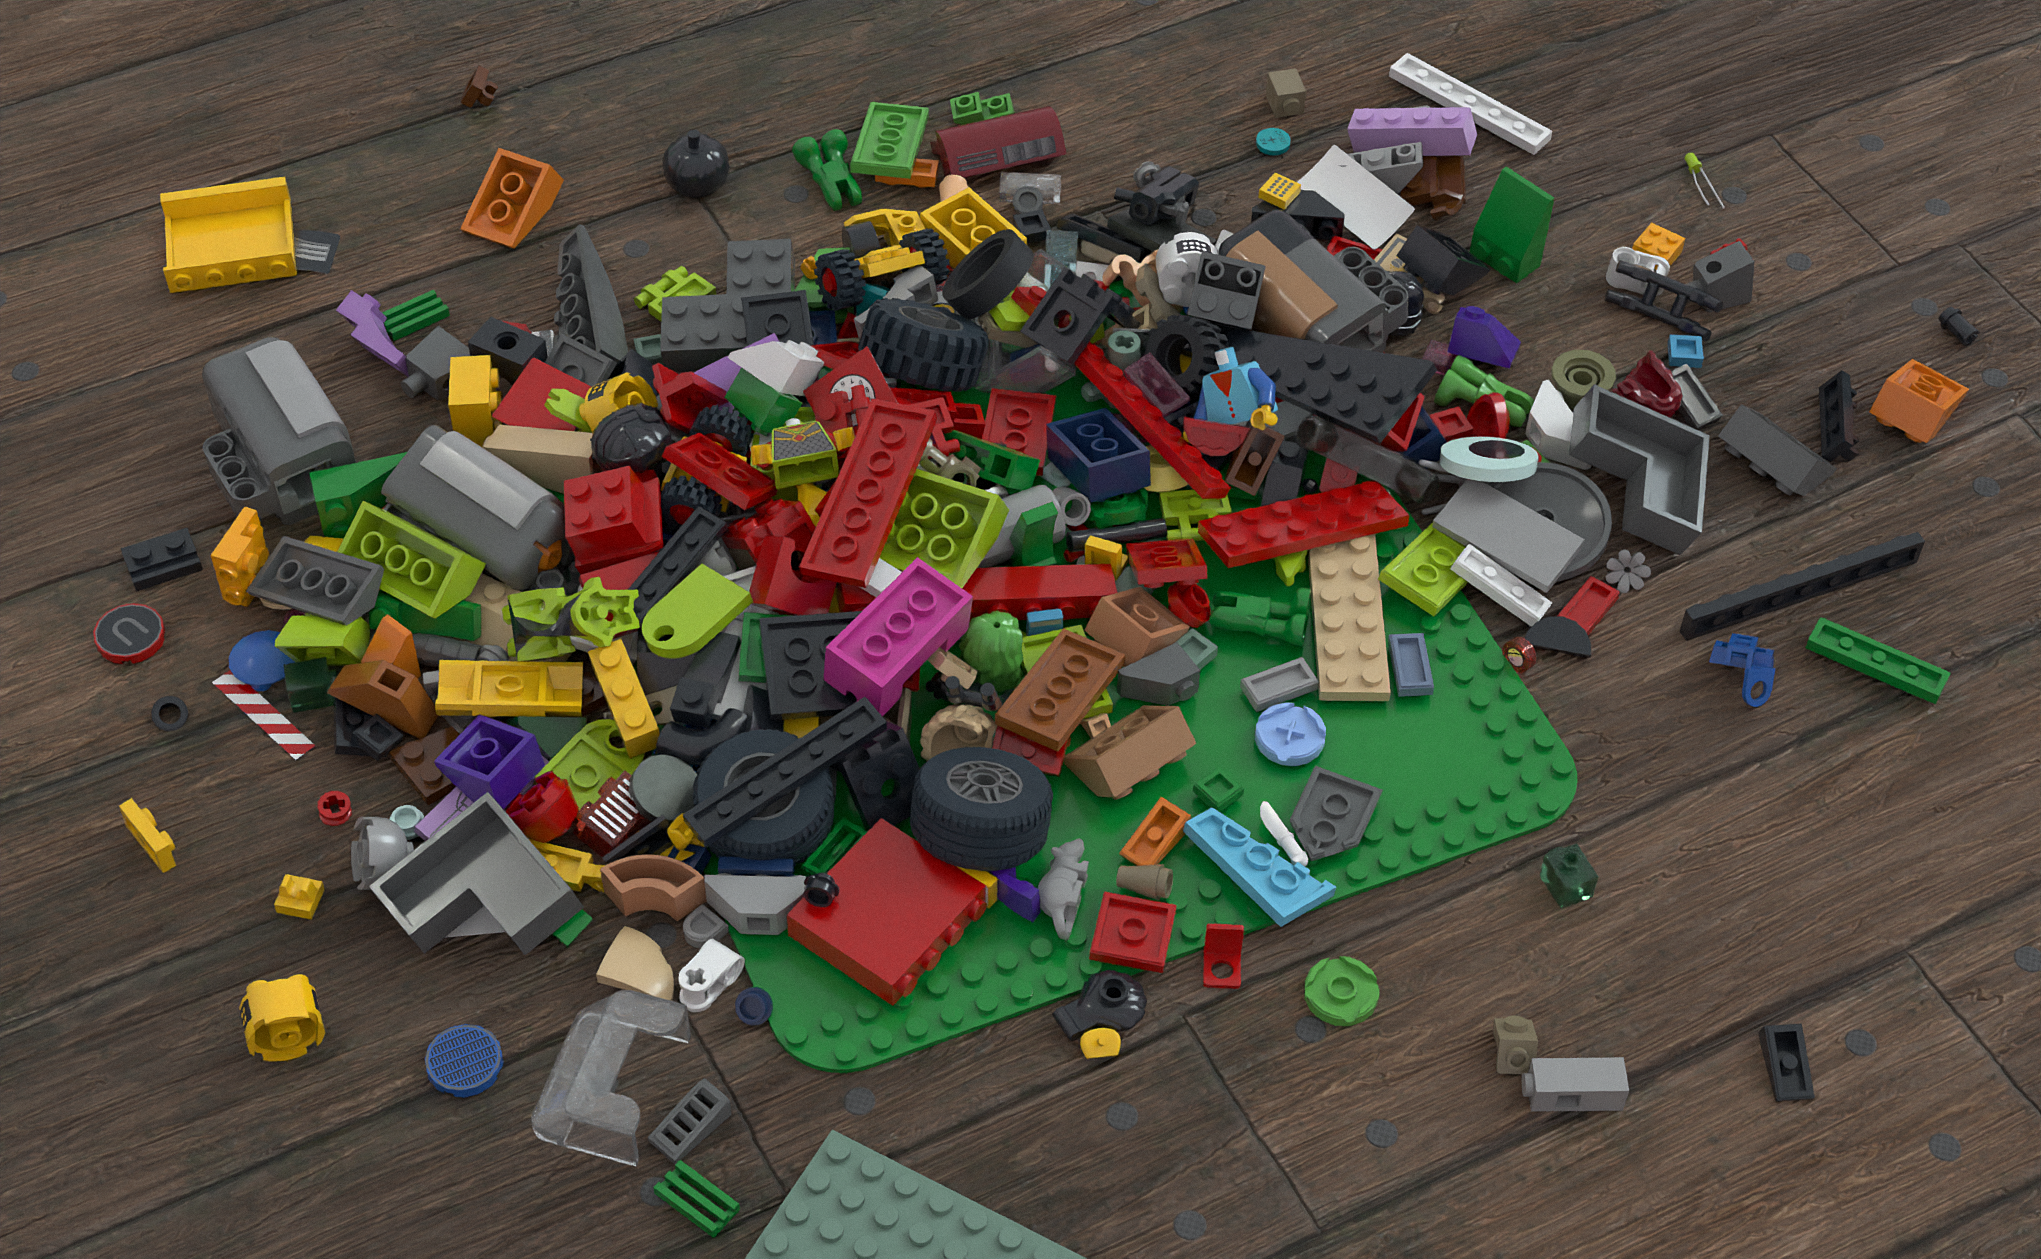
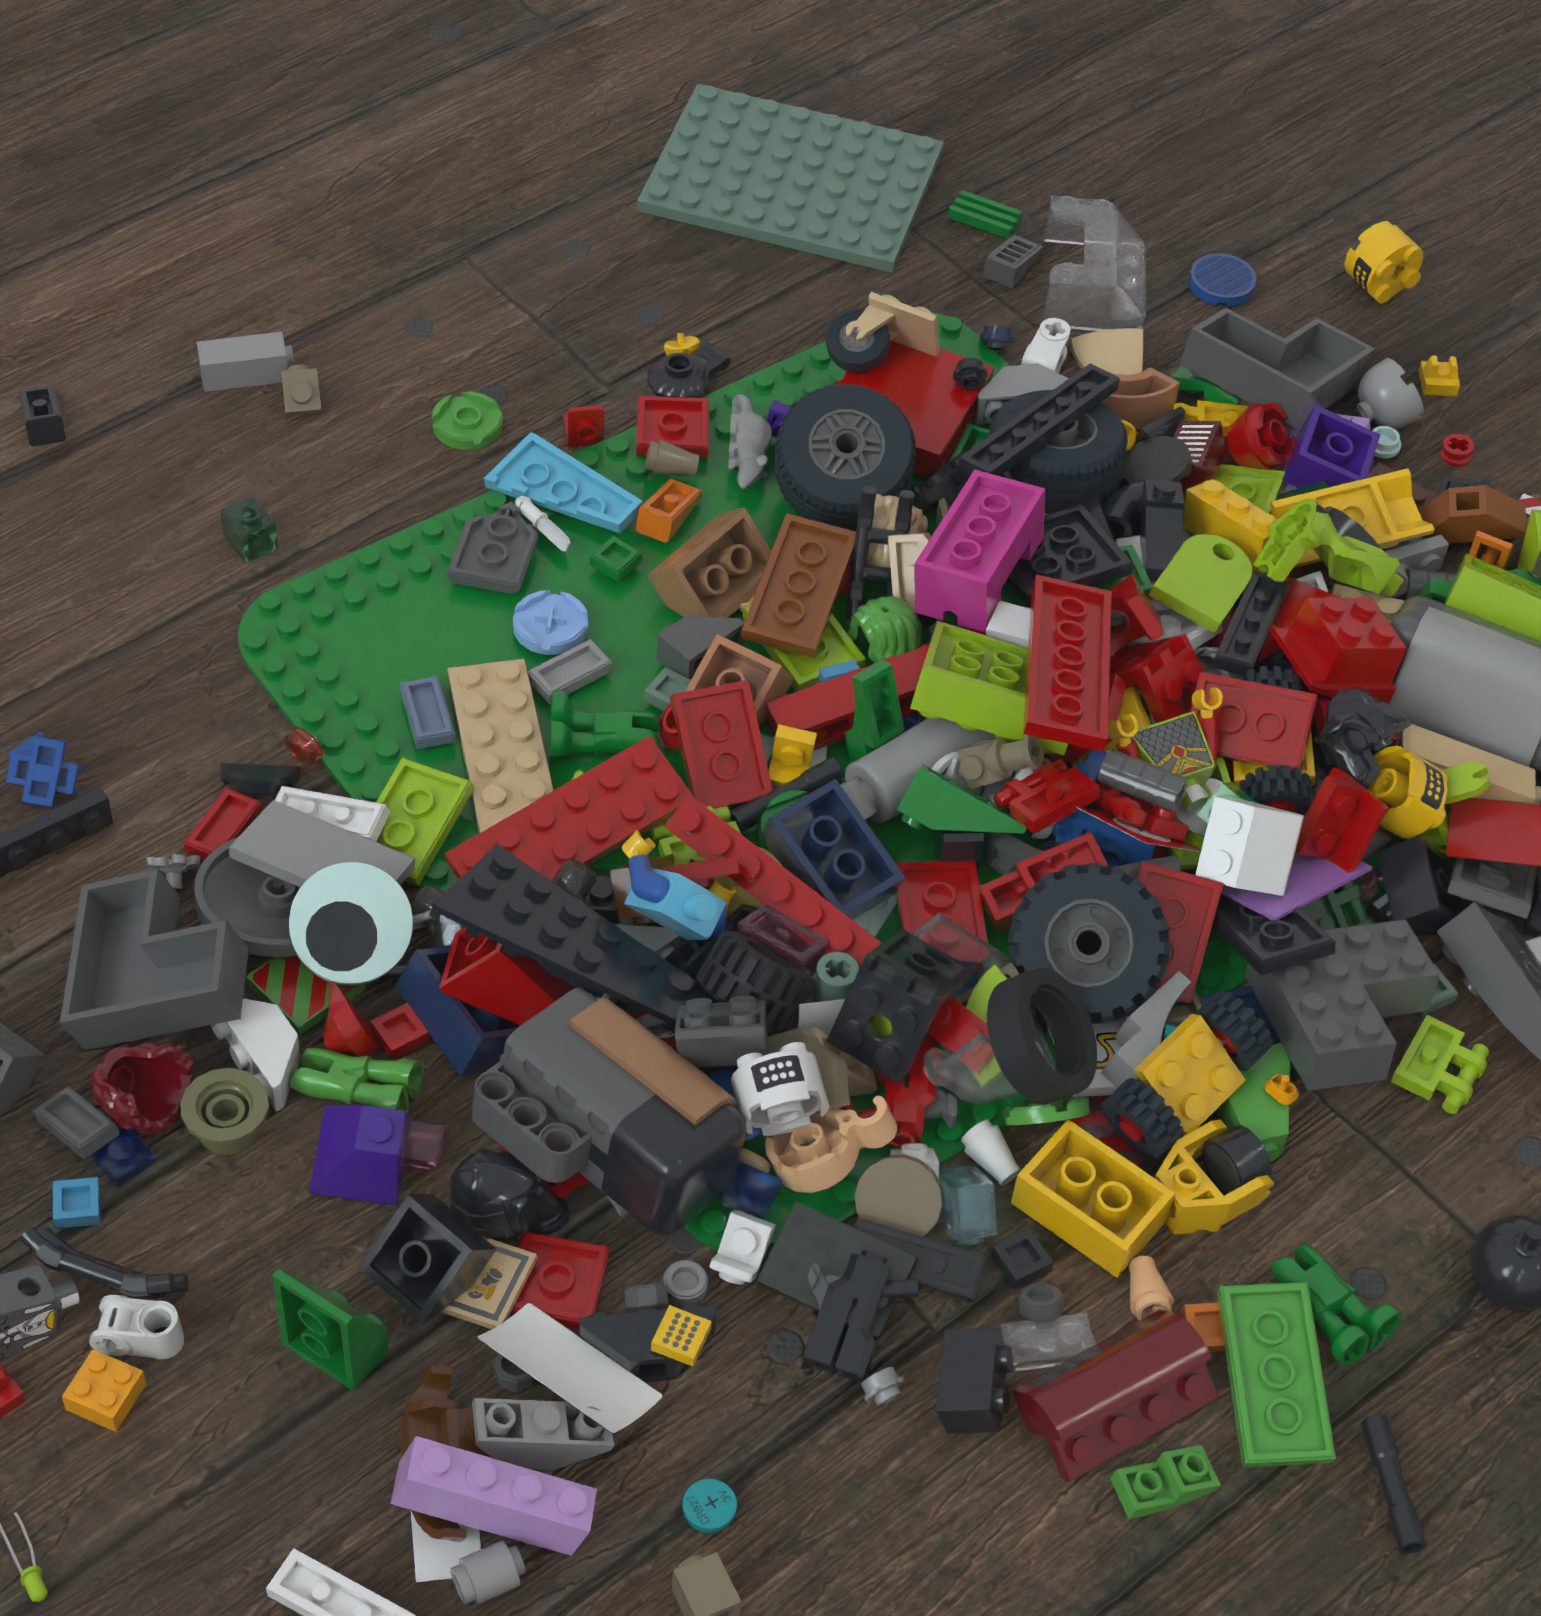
camera: 165 degrees right, 0 degrees up
(832, 411) = (1142, 780): none -> dark grey axle
(837, 100) = (1400, 1509): none -> black piece
(895, 935) = (862, 337): none -> plate
(1090, 160) = (973, 1380): none -> black brick

